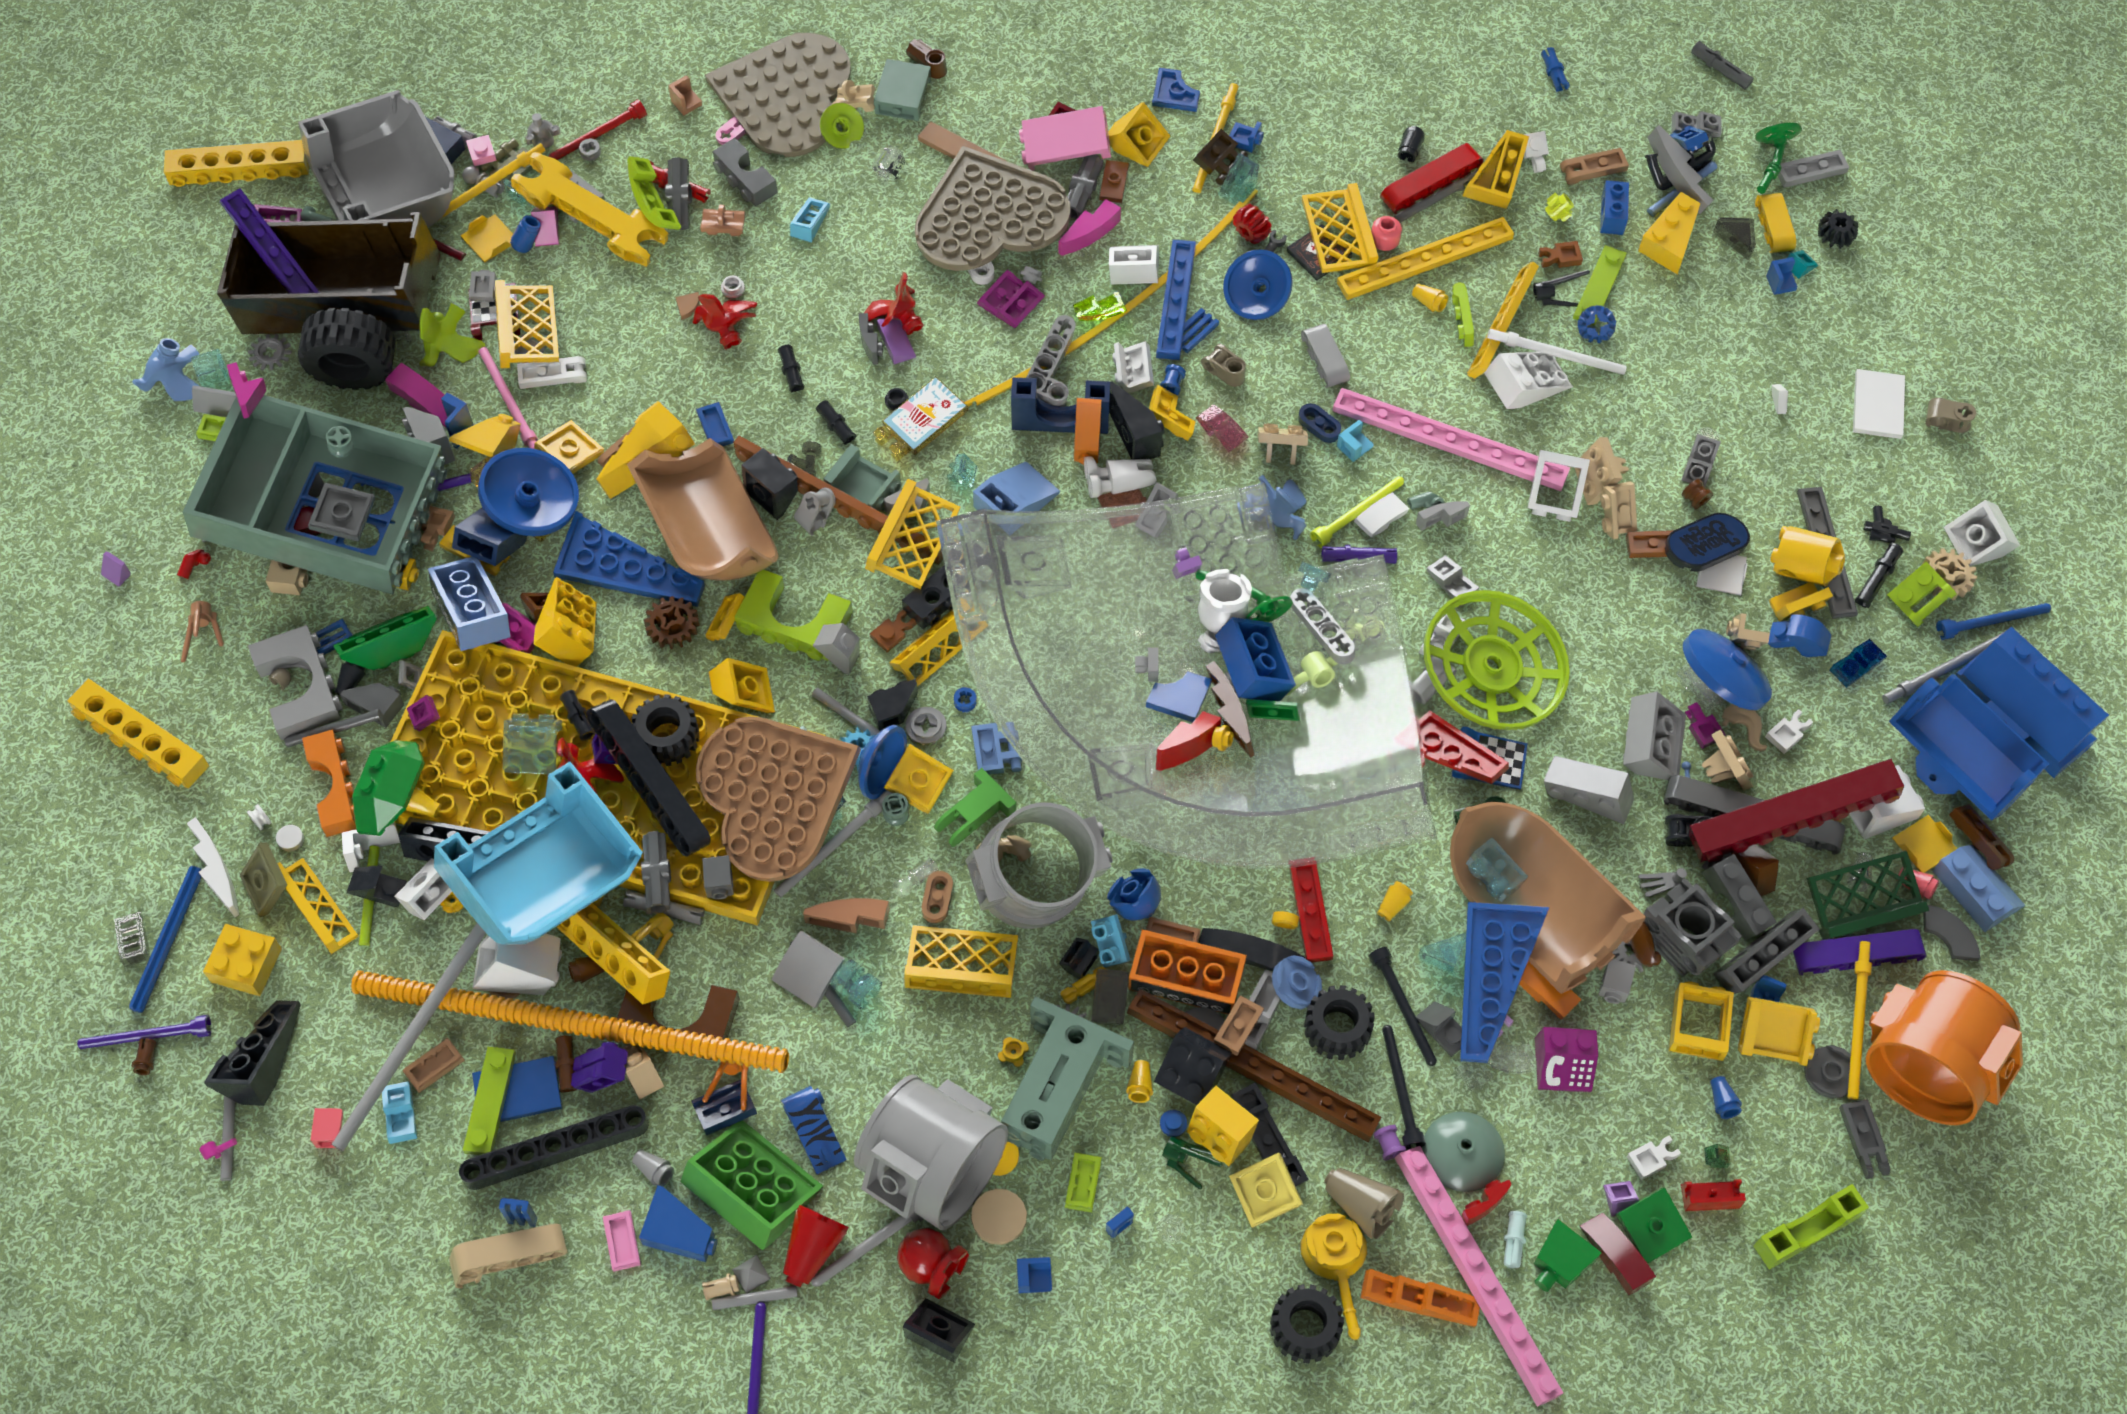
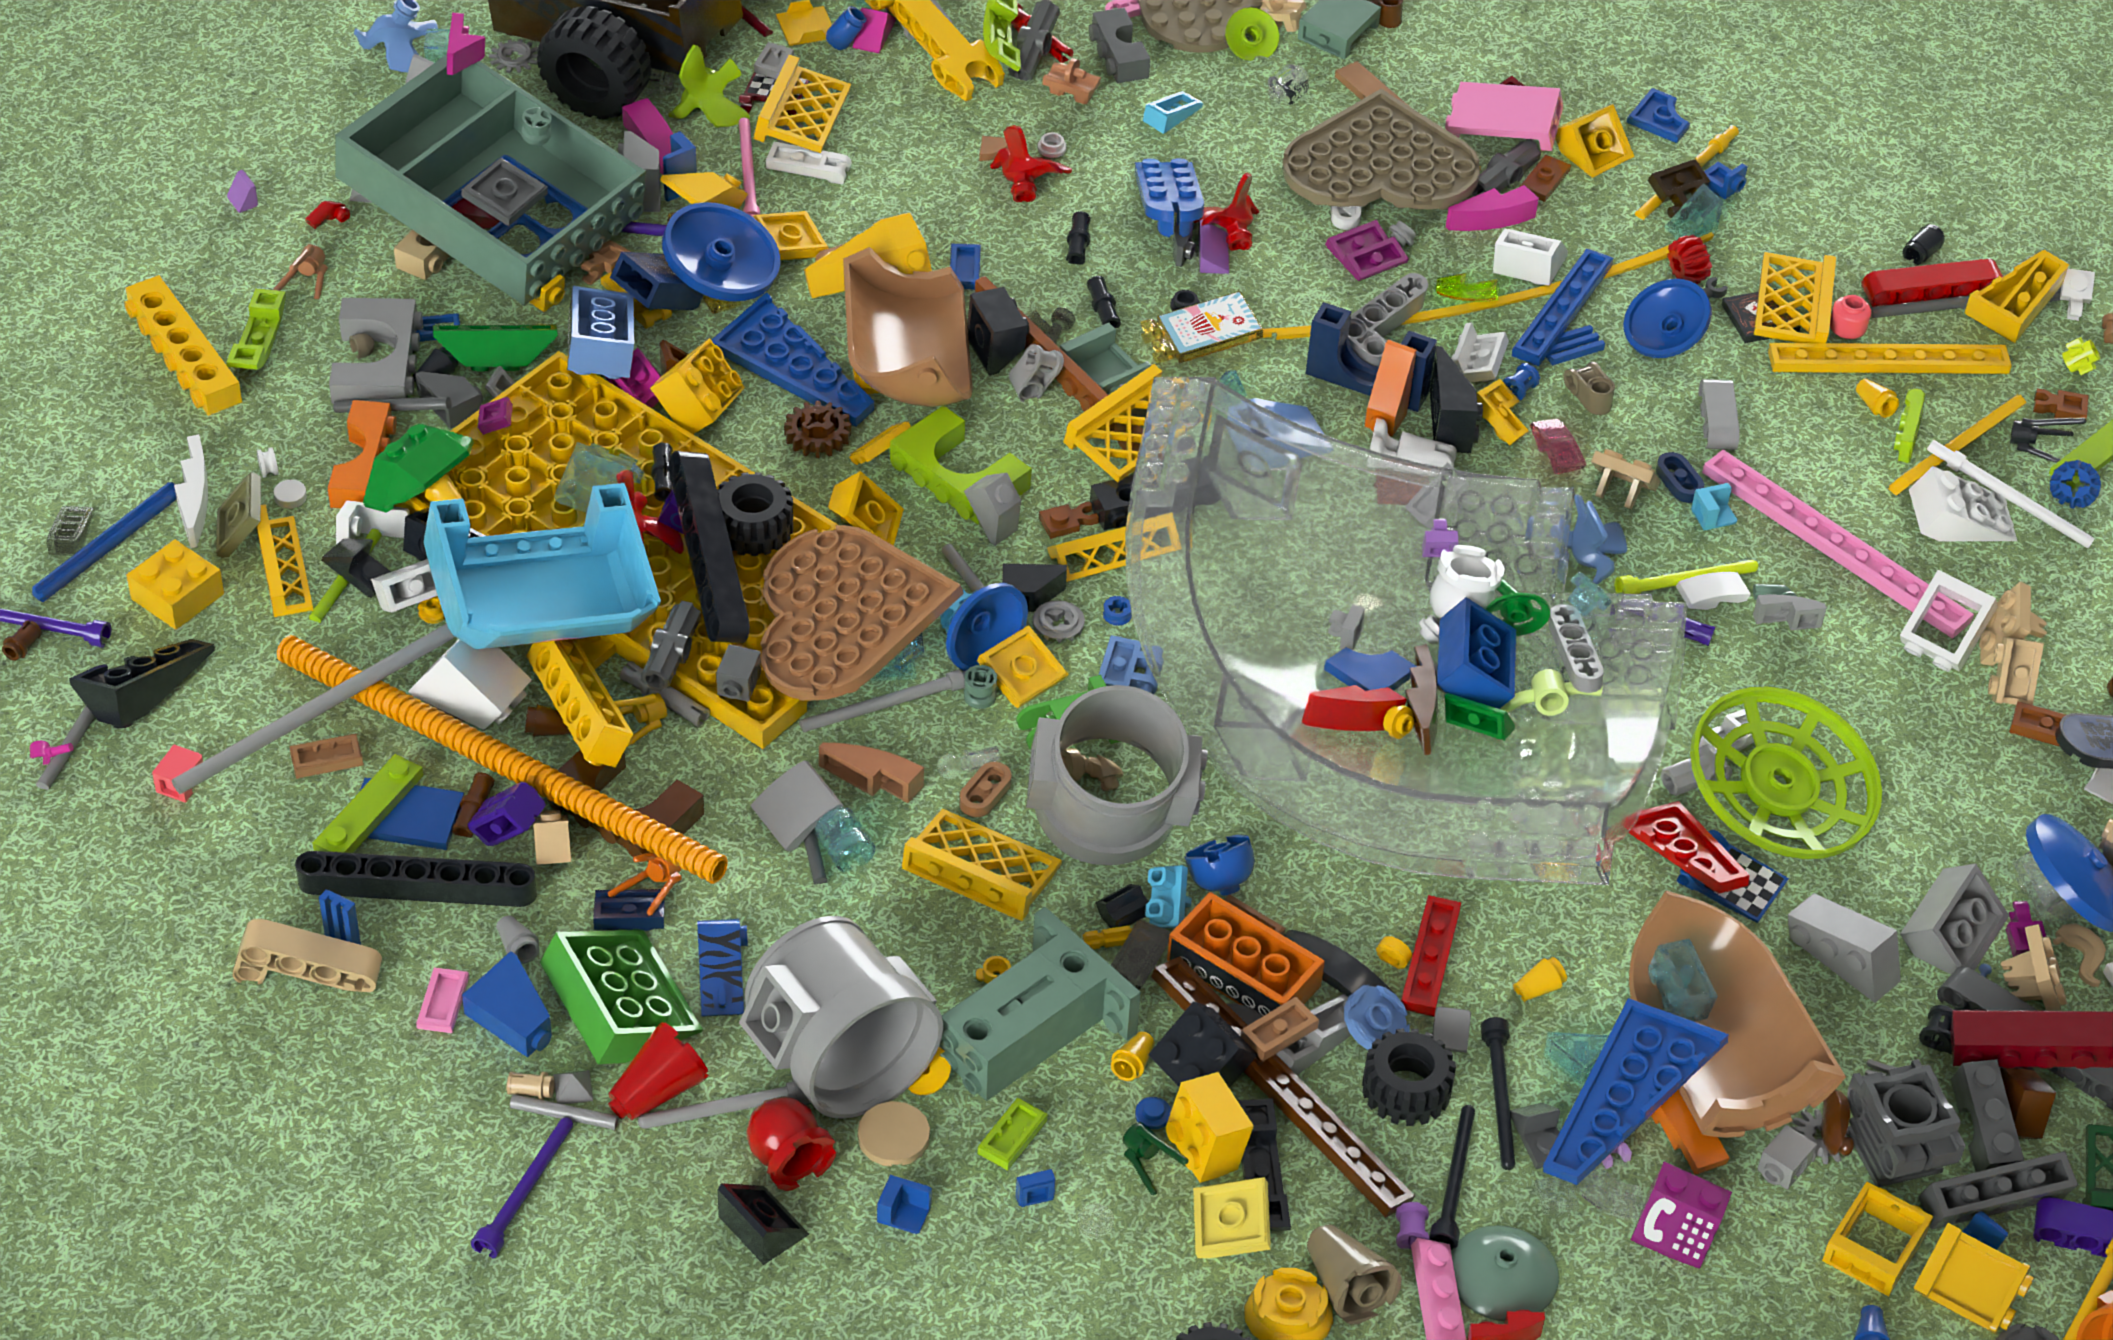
camera: 20 degrees right, 15 degrees down
(192, 697) = (260, 331): none -> lime slope
(399, 1112) = (264, 788): medium azure slope -> none
(846, 305) = (1169, 190): none -> plate
(1349, 968) = (1452, 1028): none -> light grey slope
(1450, 577) = (1771, 673): light grey slope -> none

